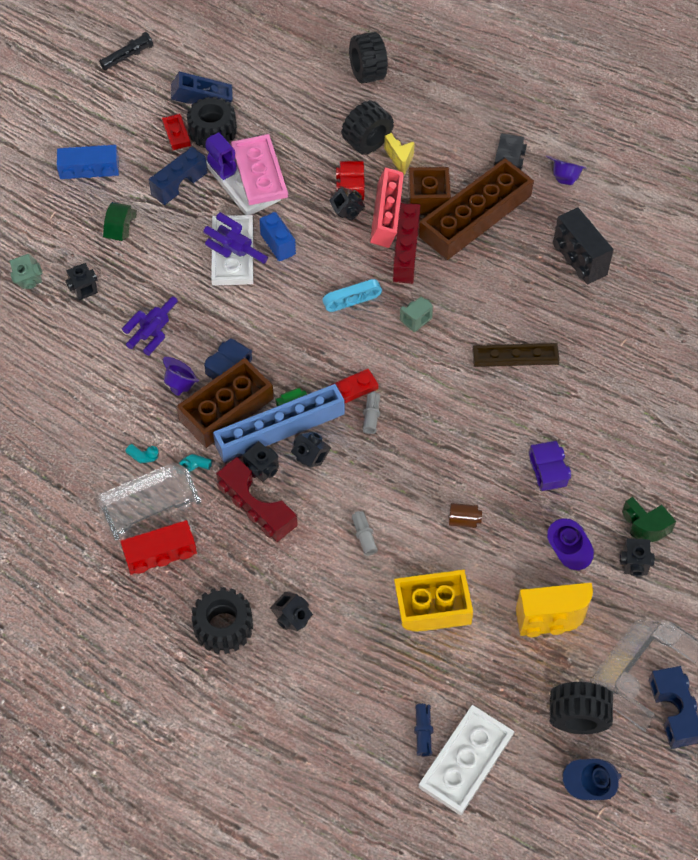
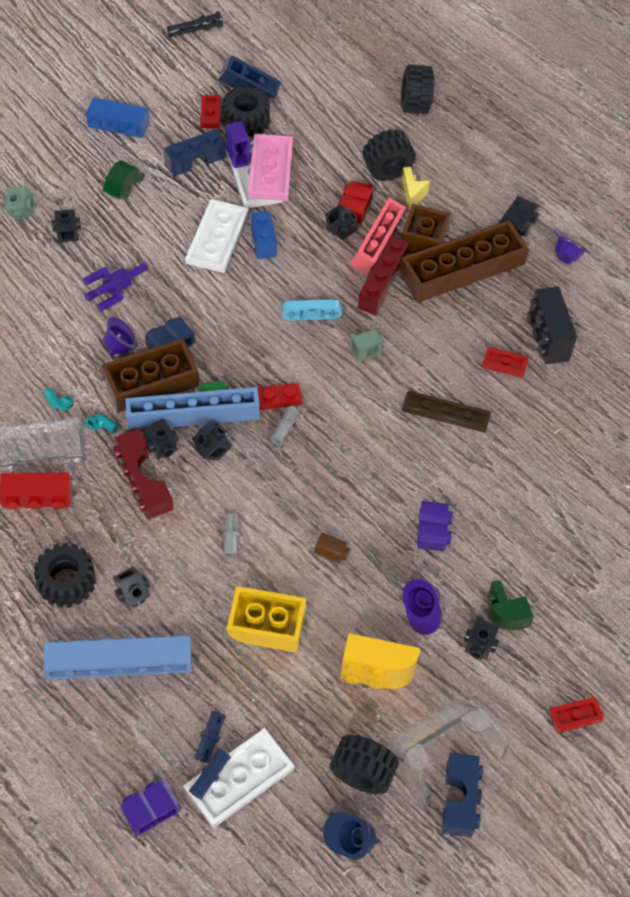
camera: 15 degrees right, 0 degrees up
(231, 239) = (217, 226): dark purple plant -> none
(305, 683) = (117, 657): none -> medium blue brick
(394, 815) = (150, 807): none -> dark purple brick
(441, 765) = (209, 774): none -> dark blue pin
(551, 292) = (505, 362): none -> red plate

